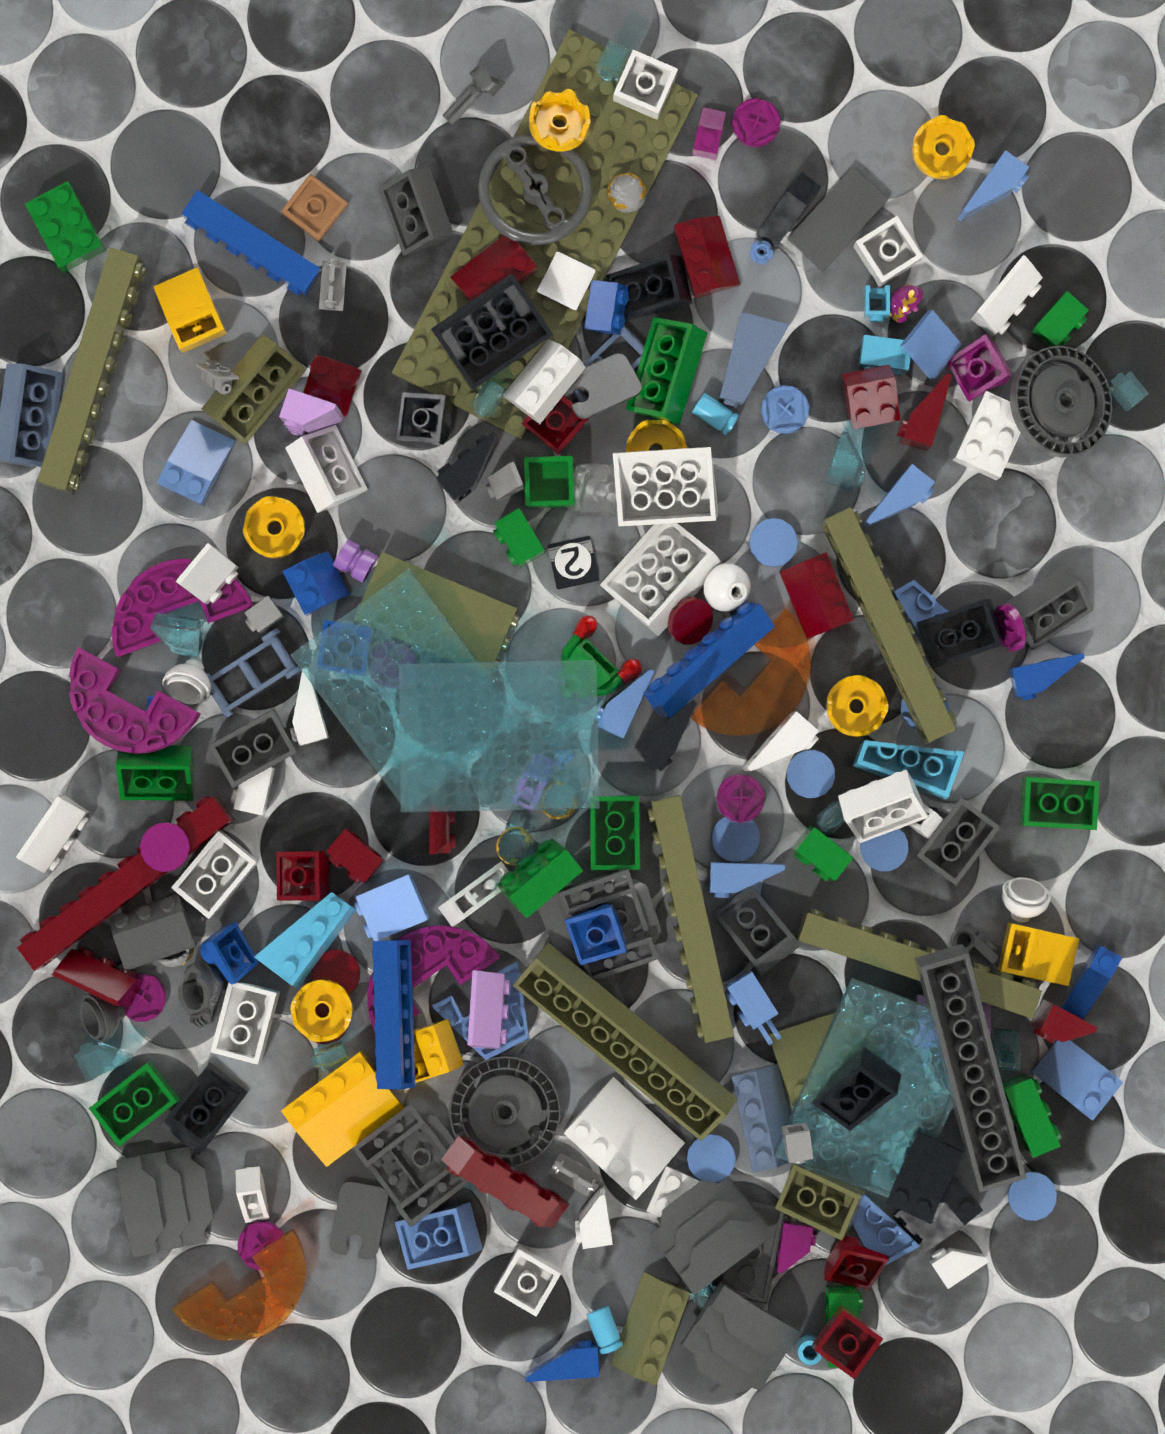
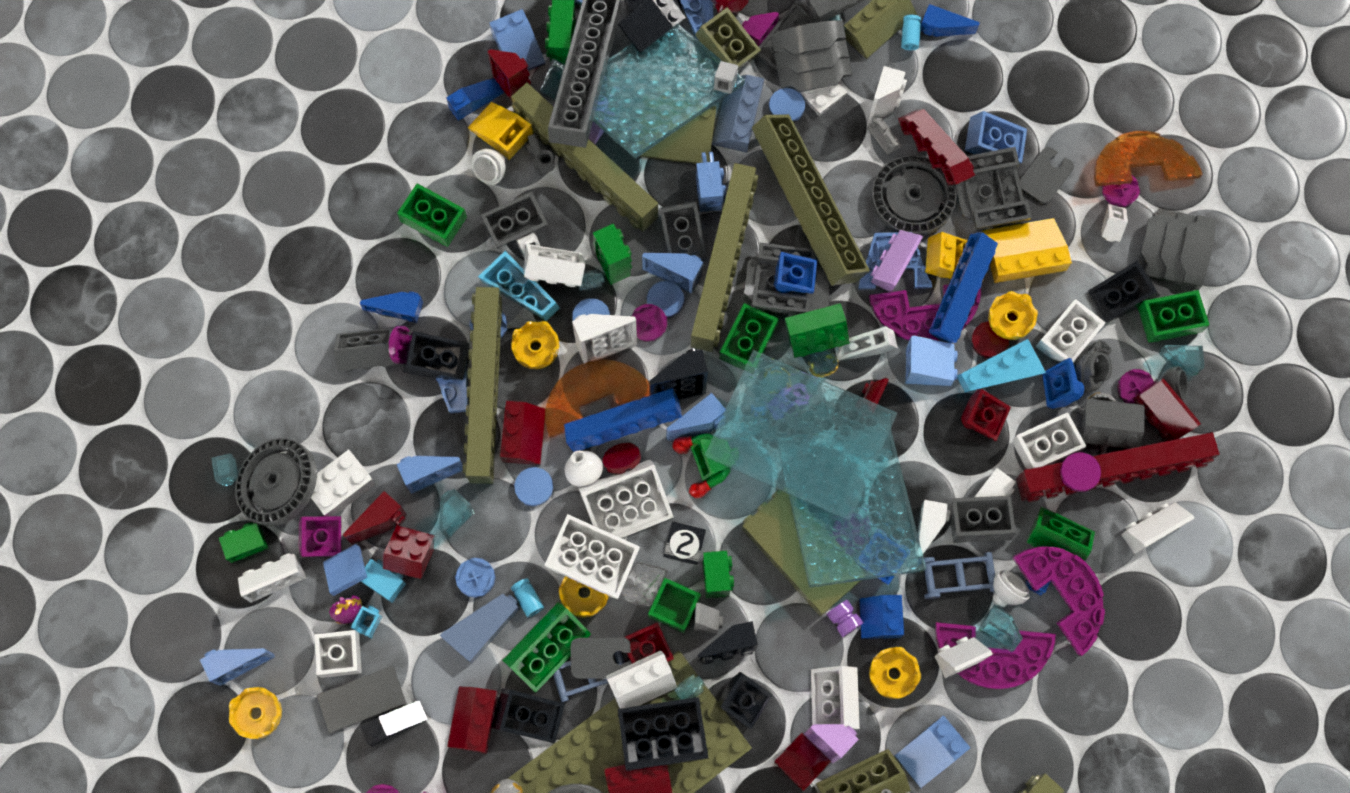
camera: 150 degrees left, 15 degrees down
(263, 615) = (931, 612): light grey brick -> none
(329, 1056) = (1020, 285): clear light blue brick -> none
(355, 856) = (941, 407): dark red brick -> none
(527, 1280) = (949, 83): white brick -> none
(566, 280) = (587, 751): white sticker -> none
(606, 307) = (567, 715): brick -> none
(624, 1137) = (840, 142): white slope -> none
(761, 258) = (430, 707): medium blue plate -> none
(858, 1089) = (666, 89): black slope -> none
(885, 851) = (567, 239): medium blue tile -> none

